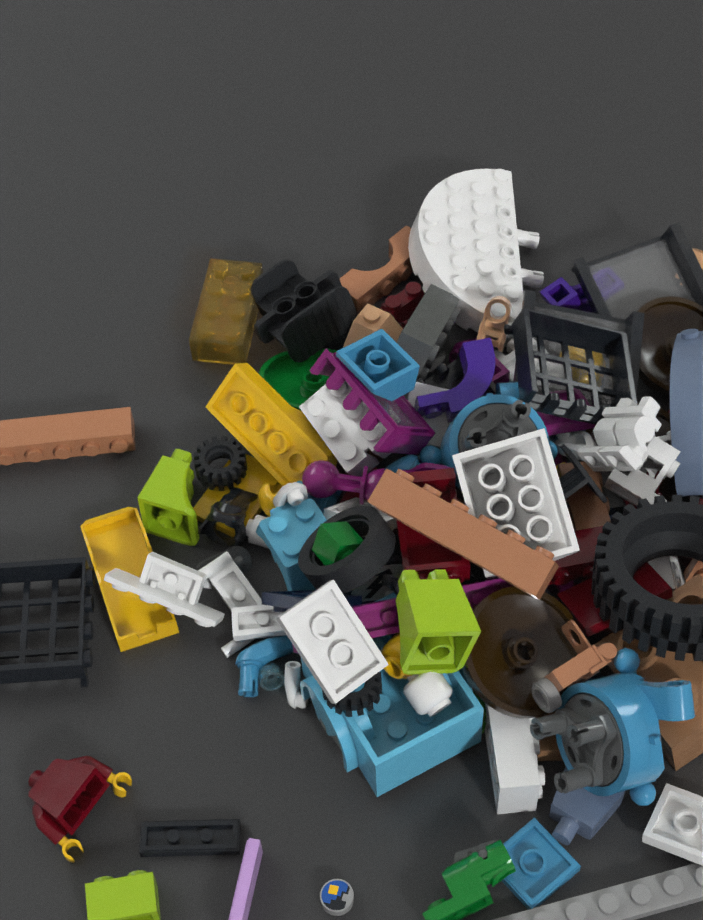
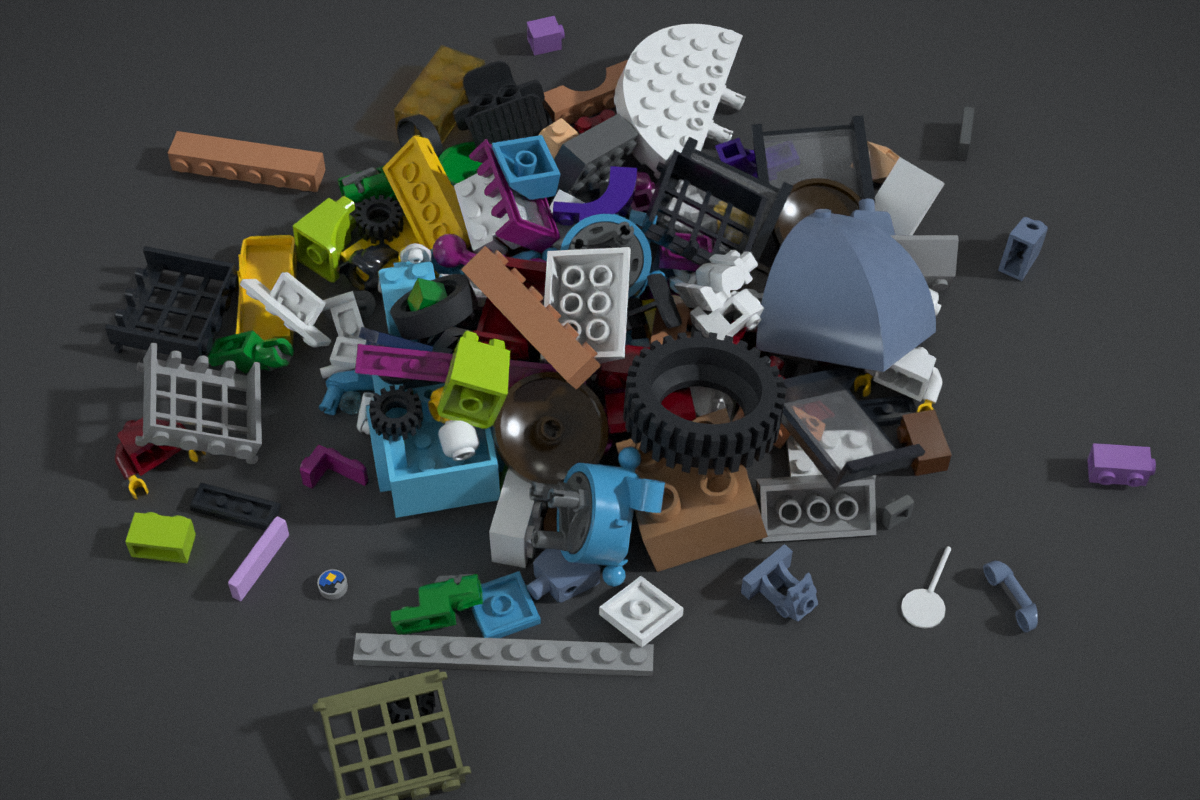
camera: 15 degrees right, 0 degrees up
(99, 695) = (199, 374): none -> light grey window
(140, 652) = (250, 348): none -> green plate
(192, 429) = (366, 184): none -> green plate
(211, 366) = (406, 131): none -> black tyre
(280, 750) = (321, 459): none -> magenta bracket
(307, 221) = (545, 35): none -> medium lavender brick
(332, 641) = (385, 370): white plate -> none
(493, 325) = (657, 155): light nougat piece -> none
(546, 695) = (553, 468): light grey tile -> none
(585, 664) = (590, 451): nougat piece -> none

